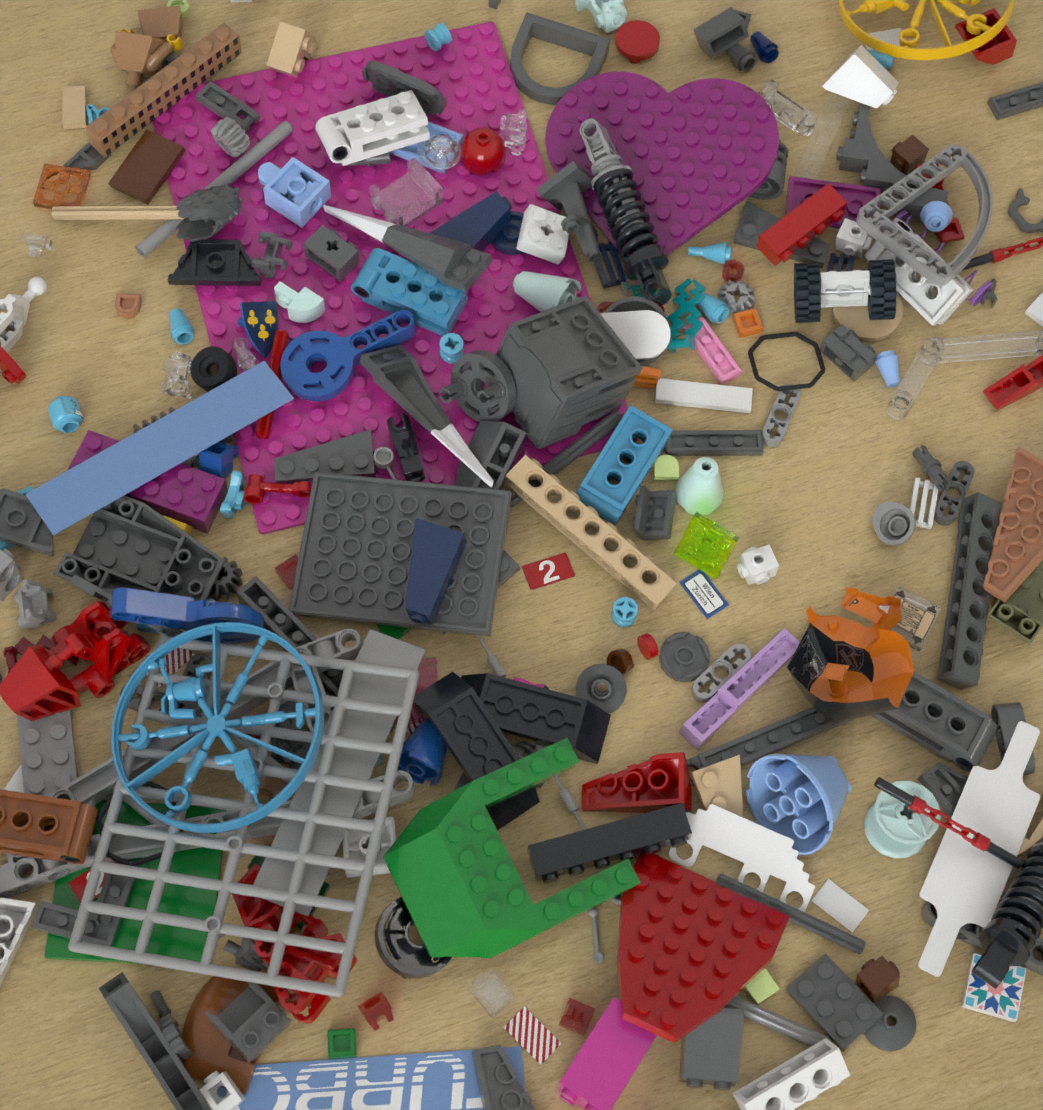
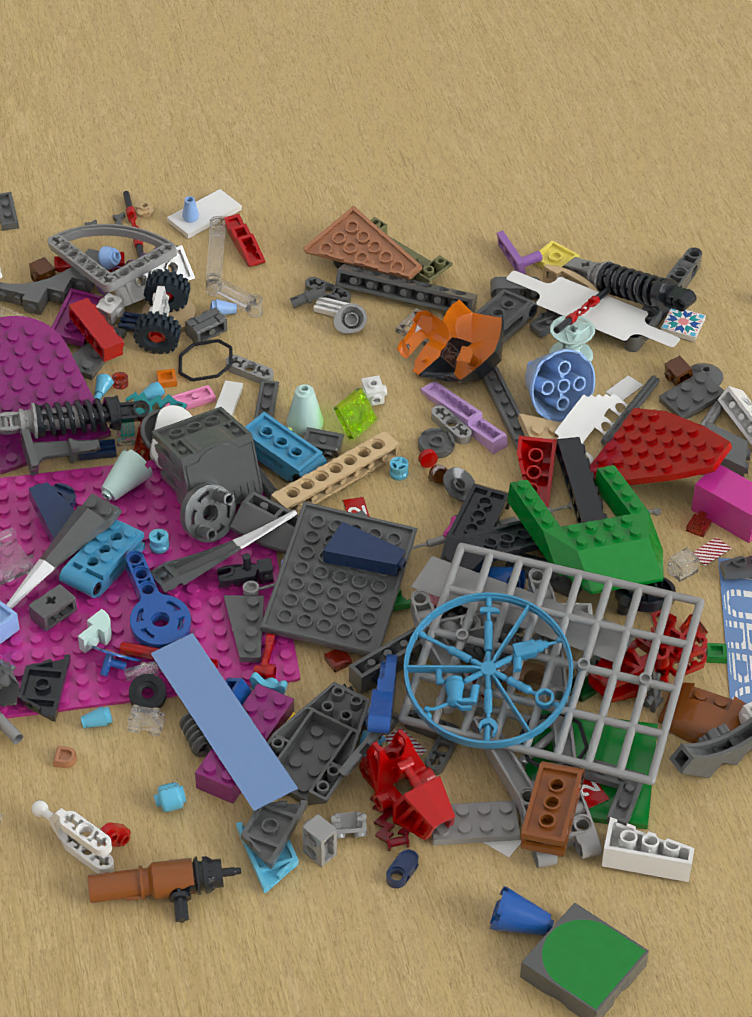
camera: 80 degrees left, 20 degrees down
(250, 1022) = (708, 687): dark grey piece -> none
(273, 252) = (46, 644): dark grey piece -> none
(532, 239) = (68, 473): white brick -> none
(704, 593) = (391, 426): sticker -> none
(746, 294) = (134, 380): light grey gear -> none

